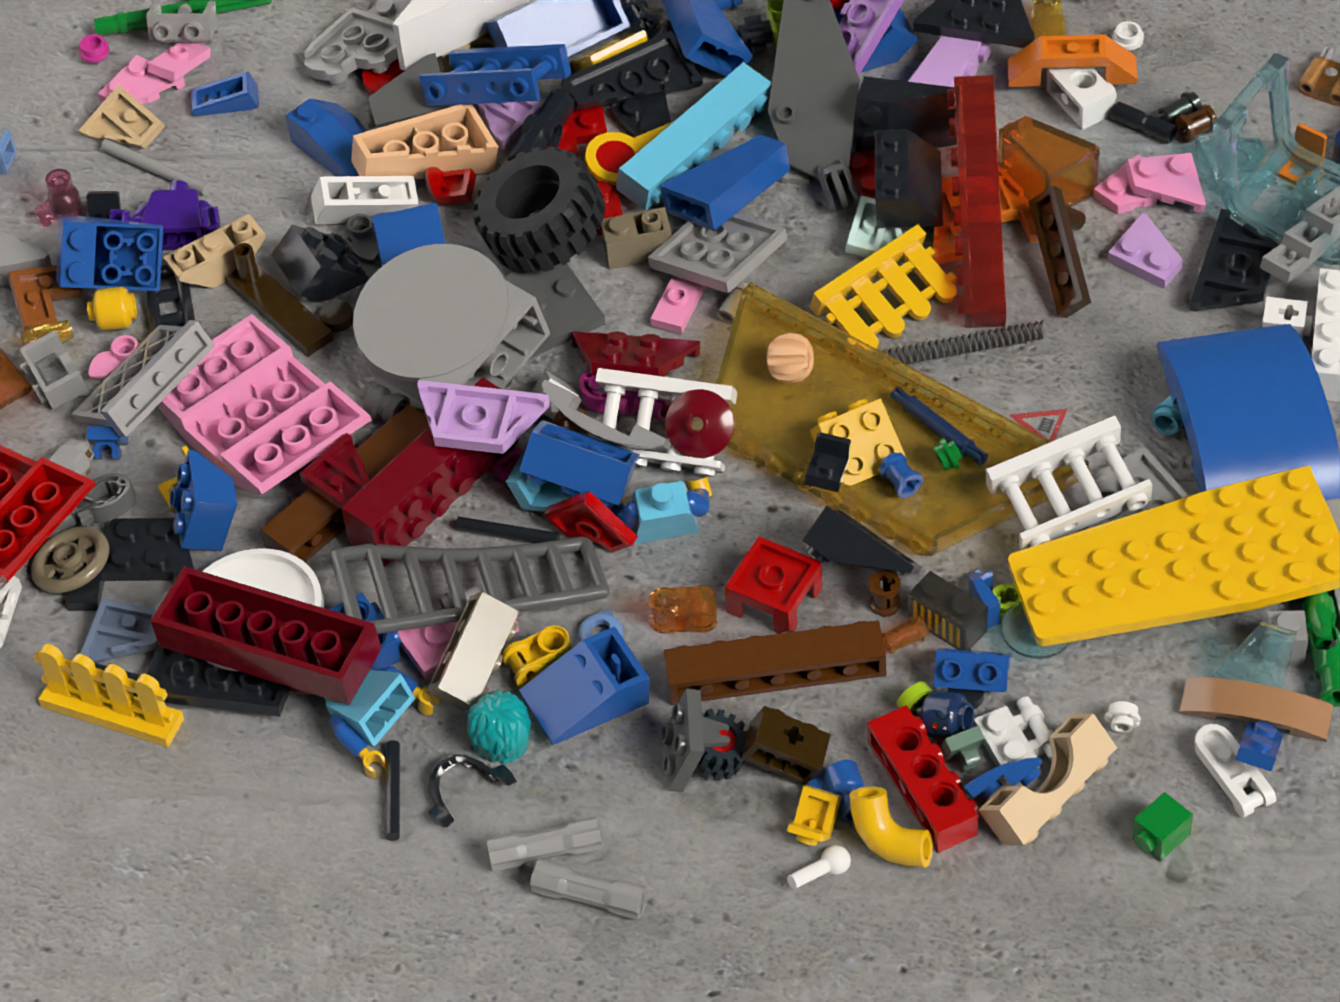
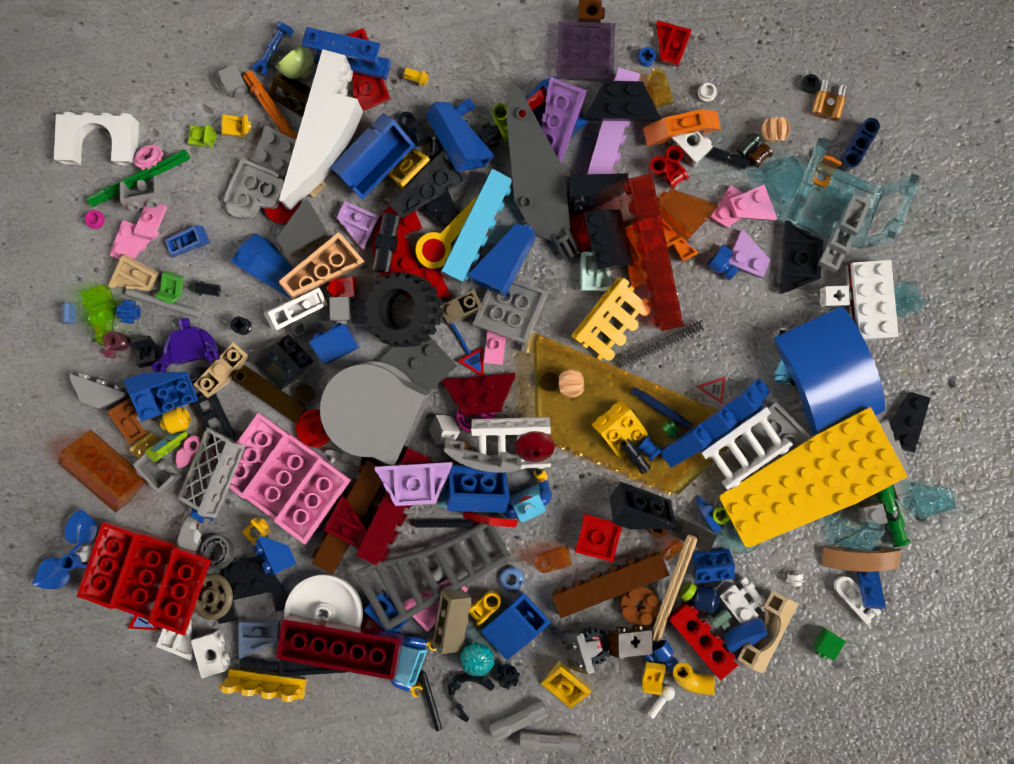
camera: 15 degrees left, 35 degrees up
(29, 629) = (208, 665): none -> white brick
(55, 148) = (101, 310): none -> clear neon green slope
(86, 332) = (166, 445): none -> lime slope
(97, 162) = (128, 311): none -> blue gear
(177, 144) = (170, 287): none -> bright green bracket
(233, 157) = (207, 289): none -> black pin
(268, 208) = (238, 321): none -> black bush
(338, 361) = (311, 430): none -> red tile
(447, 205) = (340, 310): none -> light grey brick
(495, 75) = (347, 197): blue fence -> none
(545, 765) = (507, 676): none -> black gear
(633, 319) = (473, 360): none -> piece
(650, 800) = (566, 685): none -> yellow slope
(753, 361) = (549, 381): none -> dark brown tile
(827, 693) = (644, 616): none -> dark orange plate
(828, 462) = (611, 459): black bracket -> none
(871, 474) = (635, 456): none -> black pin
(888, 673) = (673, 587): none -> tan axle
(963, 463) = (717, 424): none -> blue arch
(1043, 106) = (670, 167): none -> red piece
(1059, 251) = (703, 272): dark brown piece -> none
(1095, 251) = (720, 263): none -> blue piece
(1224, 88) = (775, 129): none -> light nougat piece
(1303, 43) = (814, 78): none -> black bush

